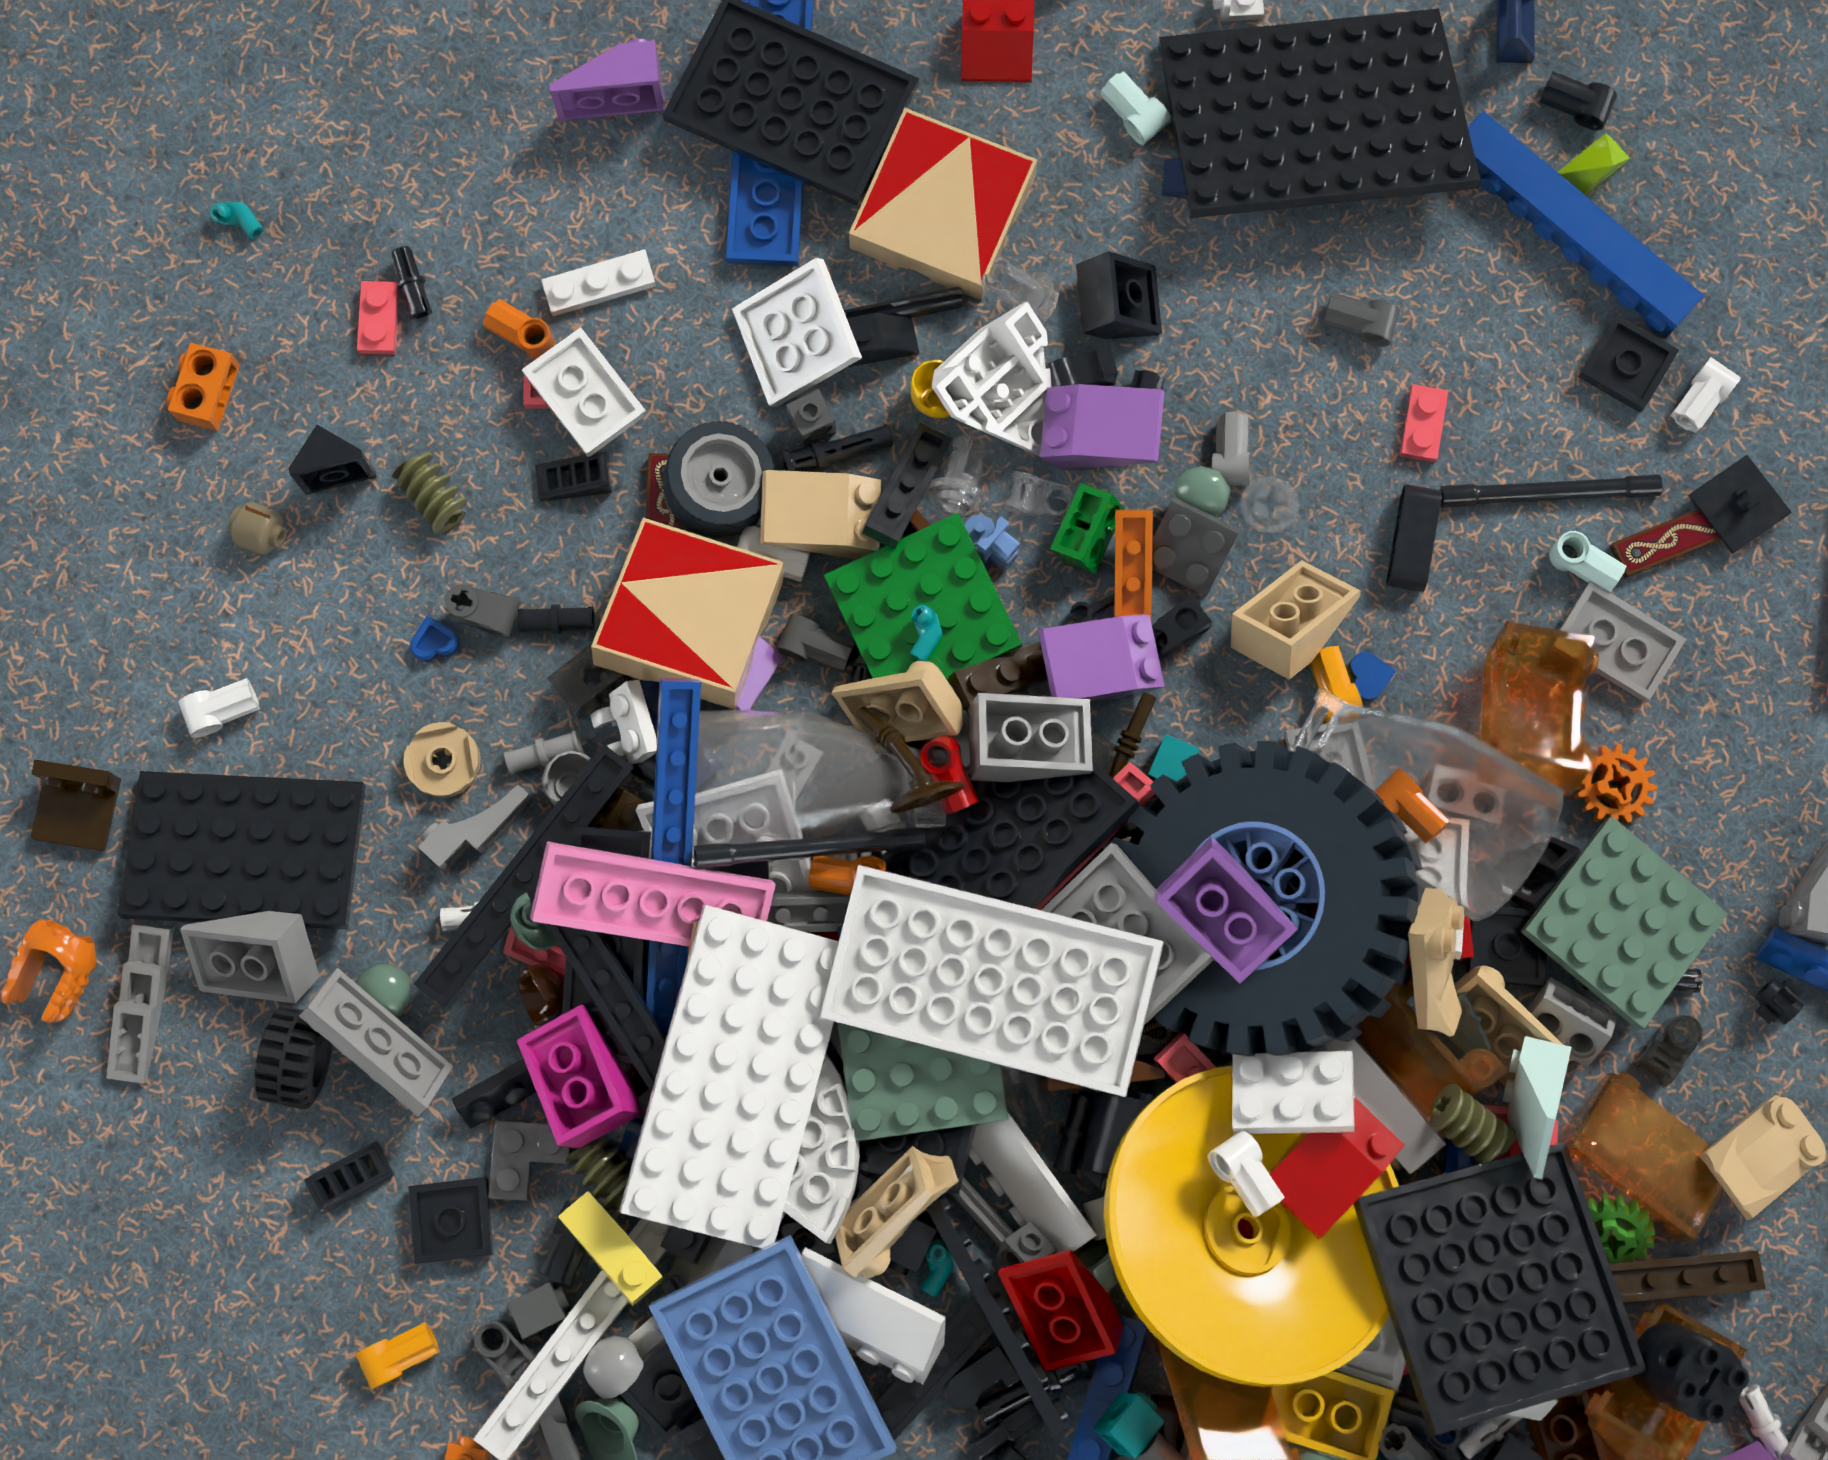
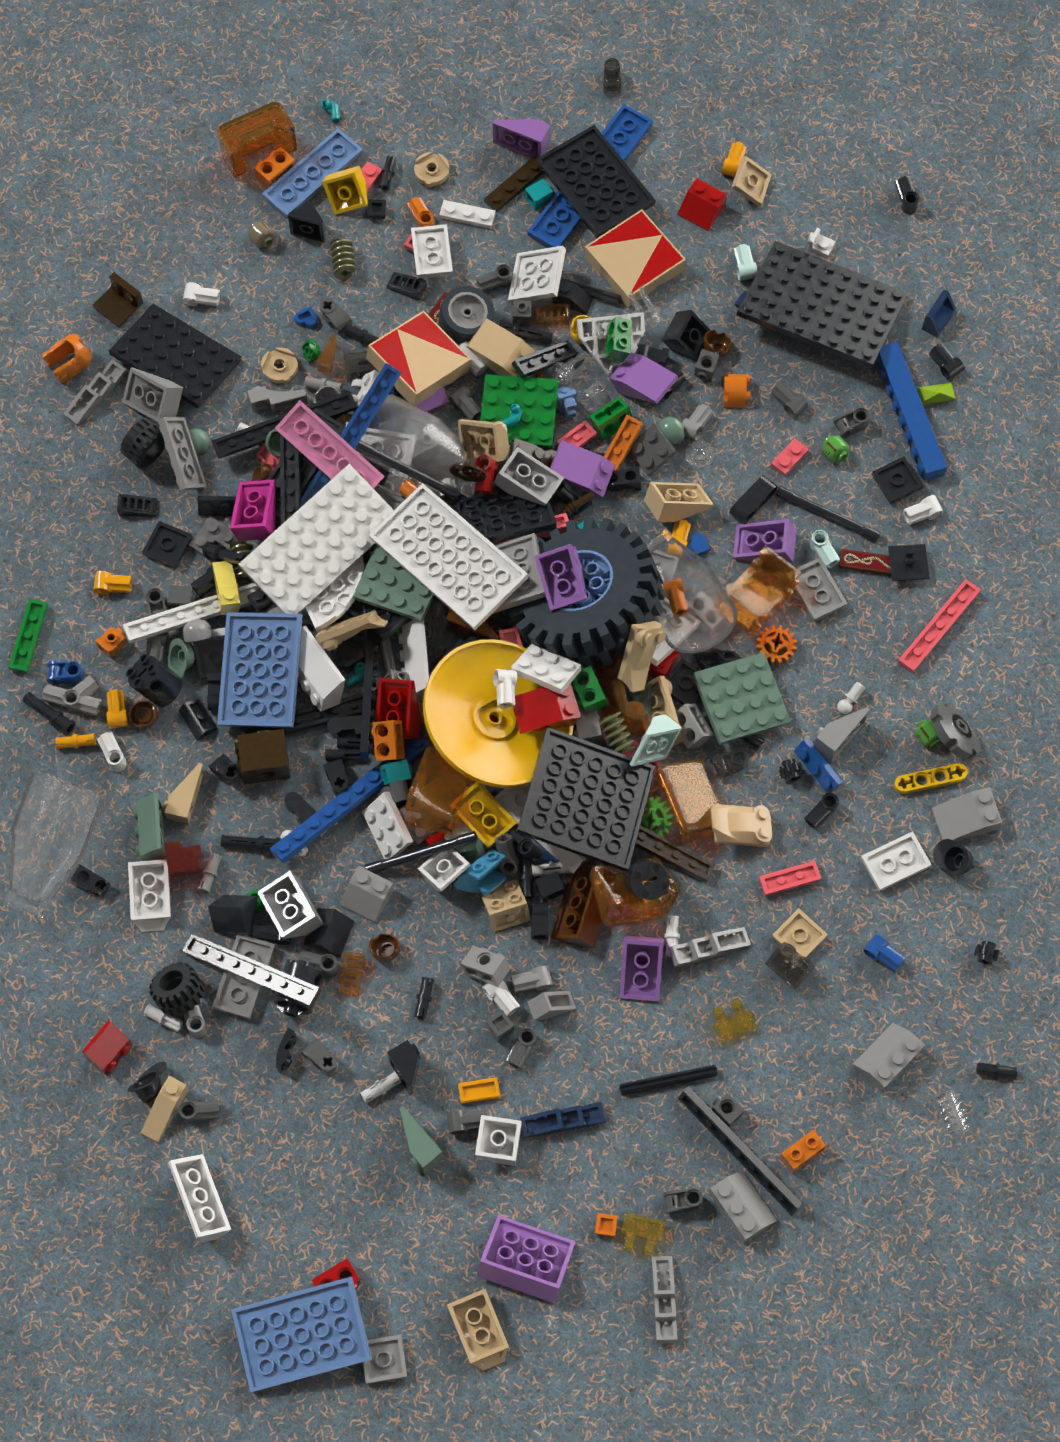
camera: 30 degrees right, 10 degrees down
(125, 345) = (254, 132): none -> clear orange windscreen
(276, 358) = (306, 176): none -> medium blue plate
(359, 359) = (346, 190): none -> yellow slope
(433, 363) = (376, 209): none -> black plate
(482, 700) = (311, 350): none -> green plate
(486, 253) = (434, 178): none -> tan plate
(521, 703) = (326, 360): none -> clear orange slope
(560, 1187) = (220, 553): none -> black pin
(646, 182) = (513, 185): none -> dark brown plate
(703, 175) = (539, 194): none -> teal brick
(721, 382) = (494, 279): none -> dark grey piece
(855, 379) = (557, 308): none -> clear orange slope
(1019, 378) = (618, 339): none -> green brick
(1046, 596) = (579, 435): none -> coral plate
(1091, 1375) = (393, 740): none -> orange brick
(1113, 716) = (568, 494): none -> black piece
(1179, 284) = (717, 342): none -> reddish brown hair
(1185, 320) = (706, 358): none -> dark grey brick
(1261, 351) = (736, 390): none -> orange cylinder
(1385, 1071) = (591, 688): none -> green brick
(1475, 604) = (753, 537): none -> medium lavender slope
(1488, 303) = (849, 424): none -> dark grey piece
(1494, 366) = (835, 449): none -> bright green head
(1790, 825) = (845, 706): none -> white axle

